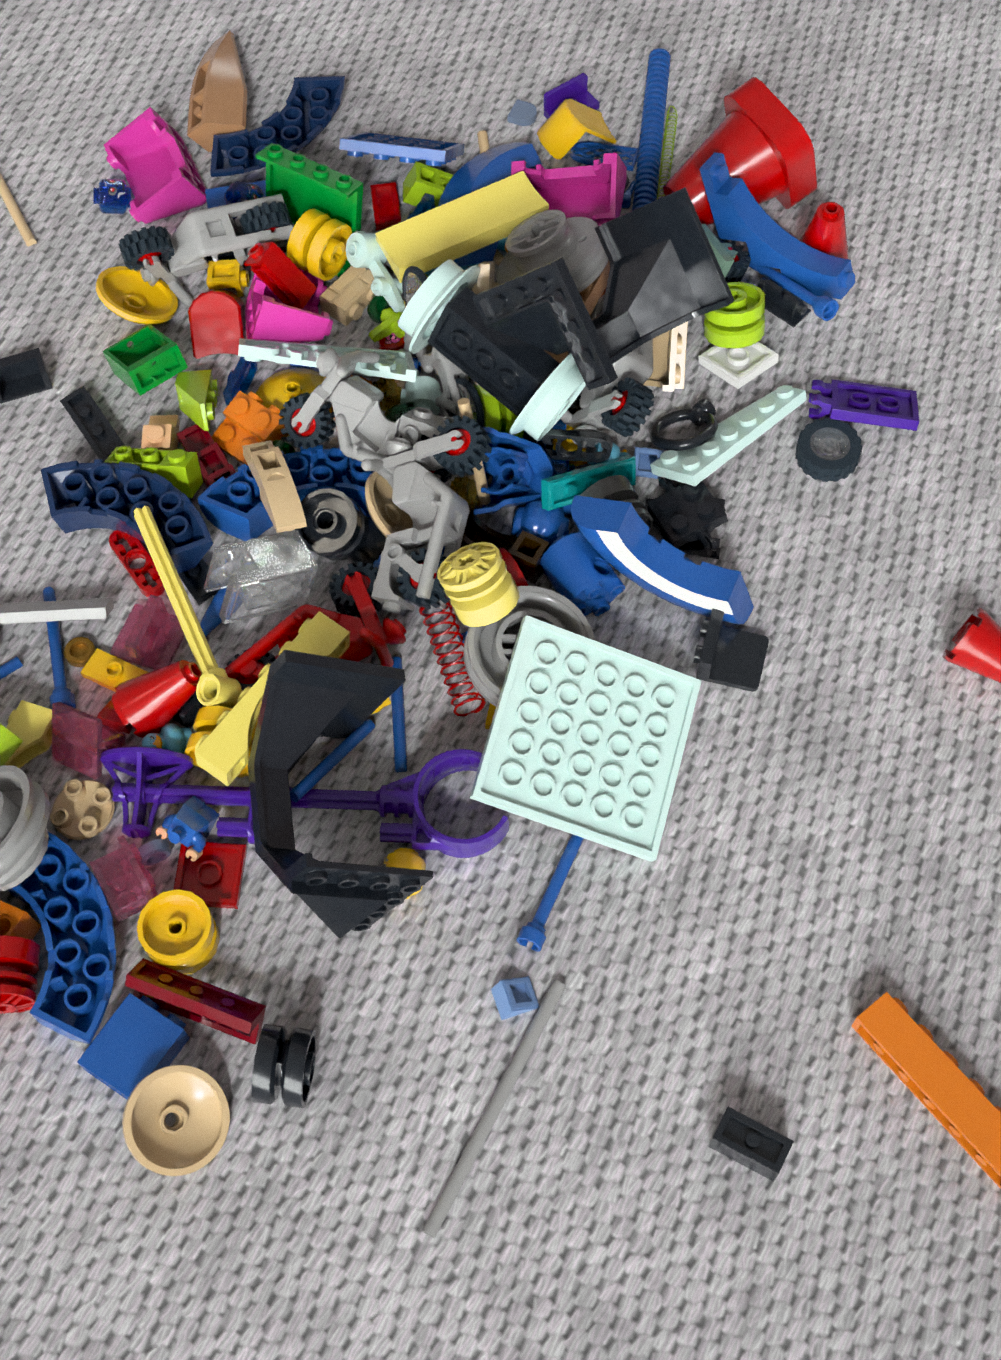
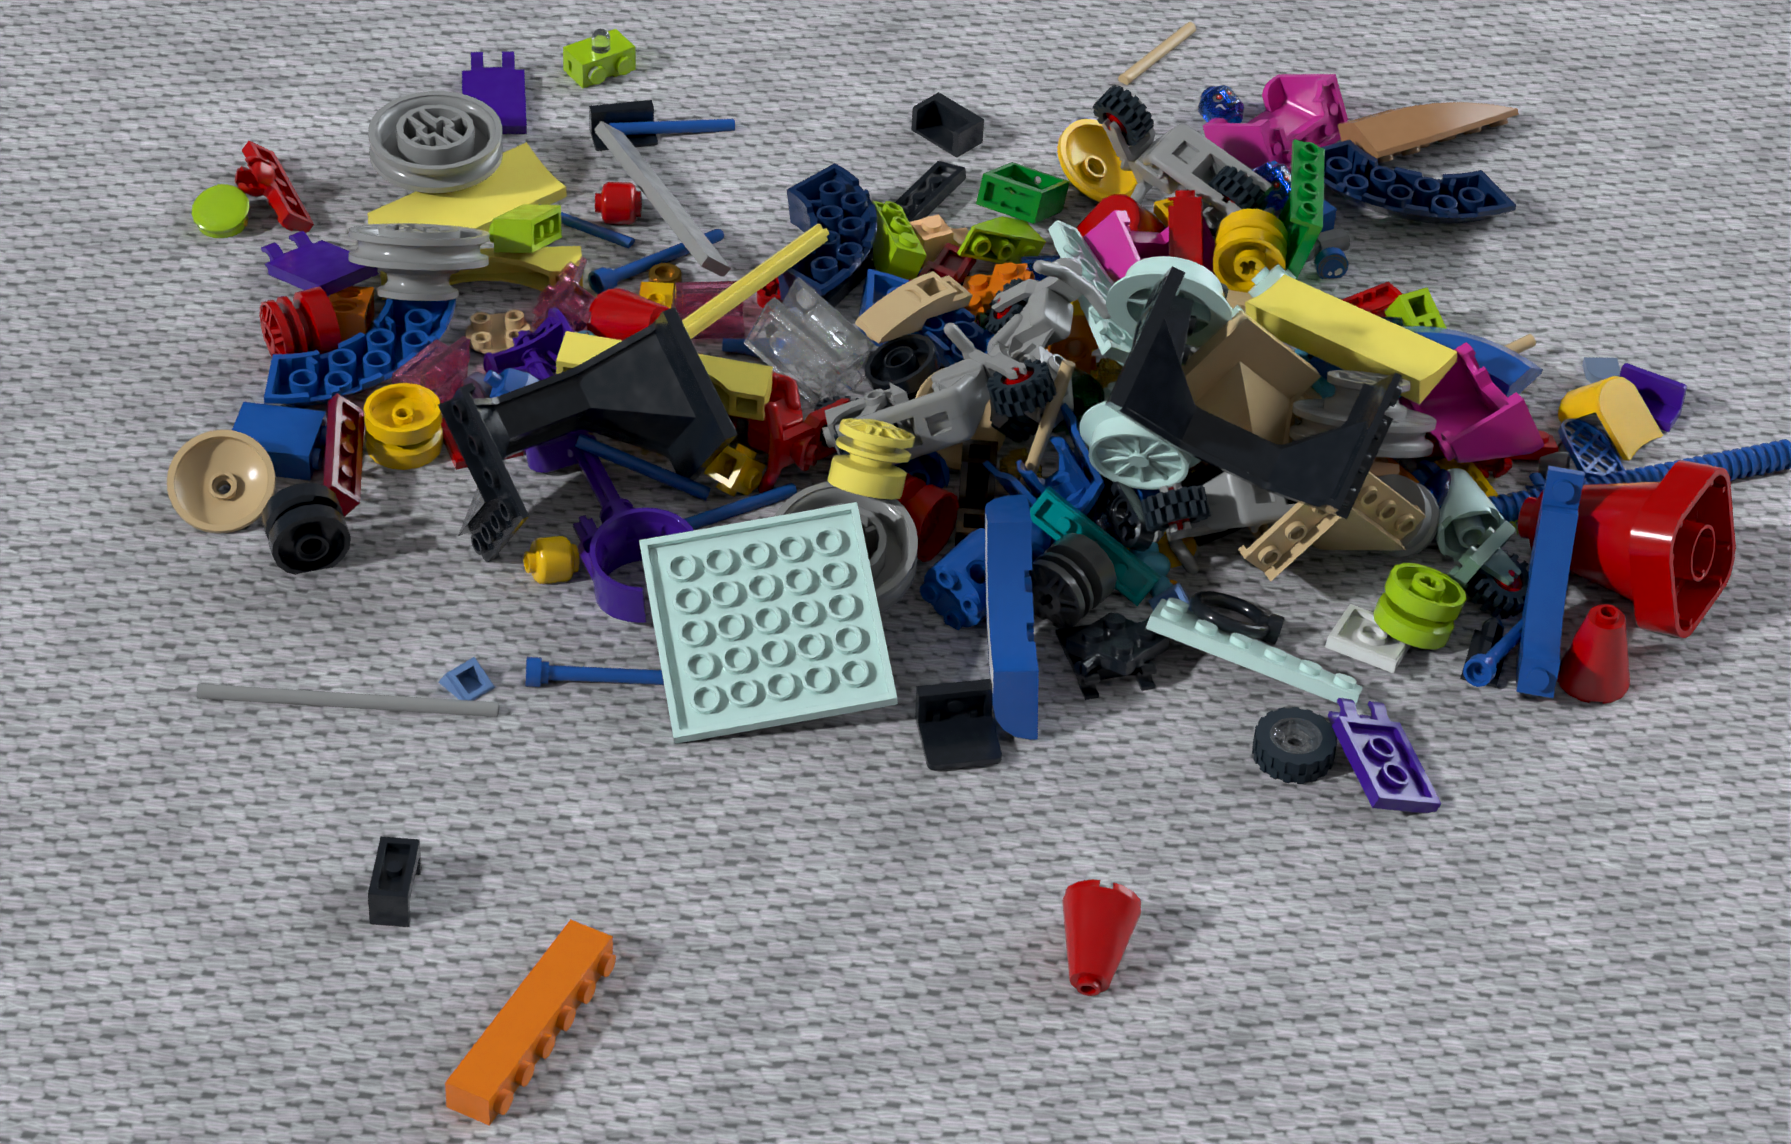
camera: 60 degrees right, 20 degrees down
(407, 148) = (1443, 275): plate -> none

